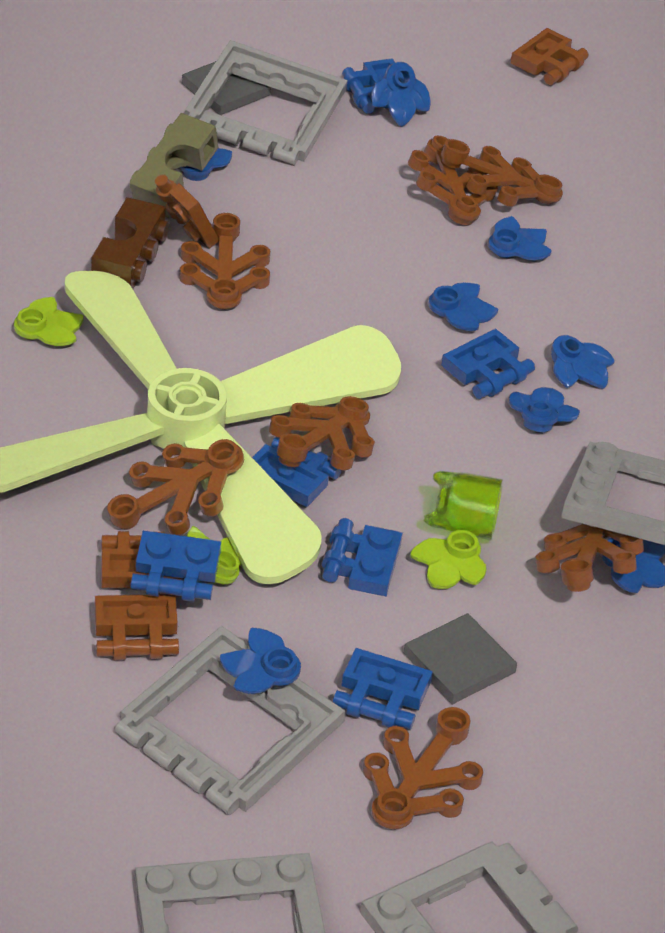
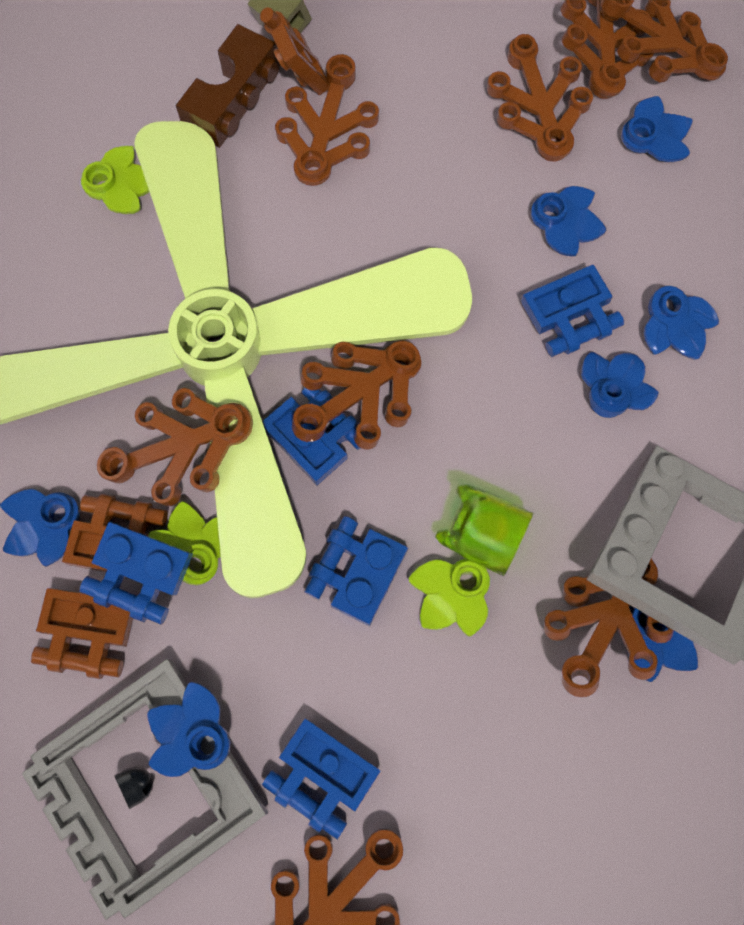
camera: 20 degrees right, 30 degrees up
(66, 562) = (35, 524): none -> blue plate
(211, 722) = (134, 785): none -> black hinge
(431, 255) = (523, 56): none -> dark orange plant
(461, 658) = (423, 742): dark grey tile -> none

